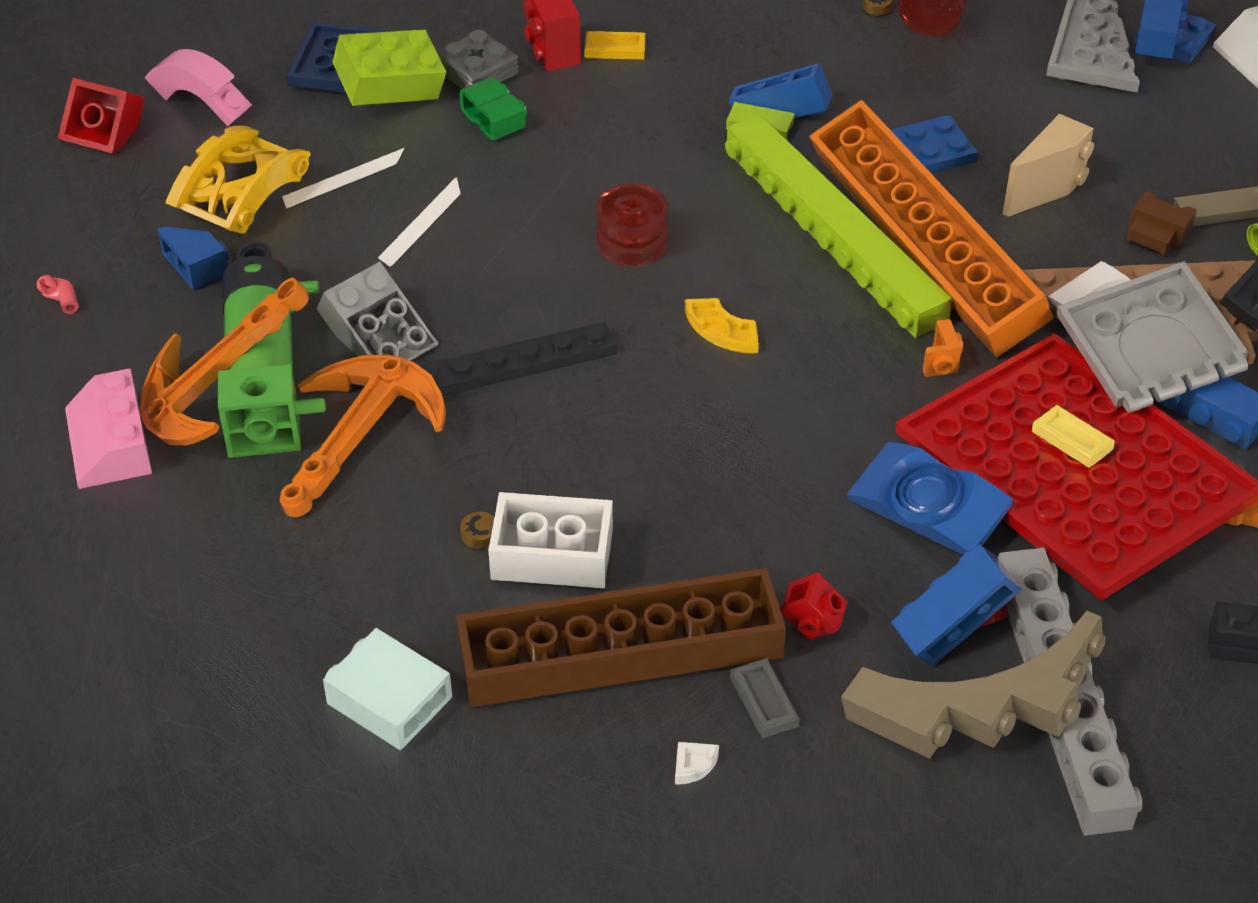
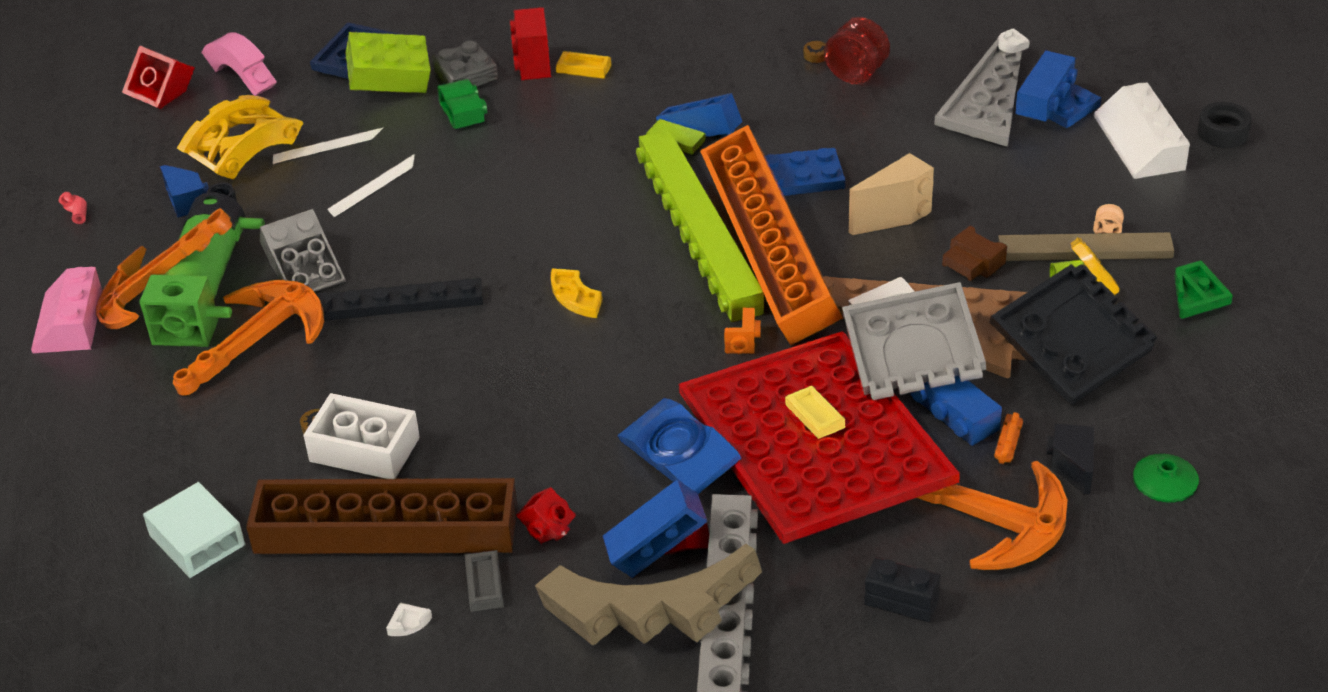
camera: 15 degrees right, 5 degrees down
(632, 224) = (531, 205): clear red wheel -> none

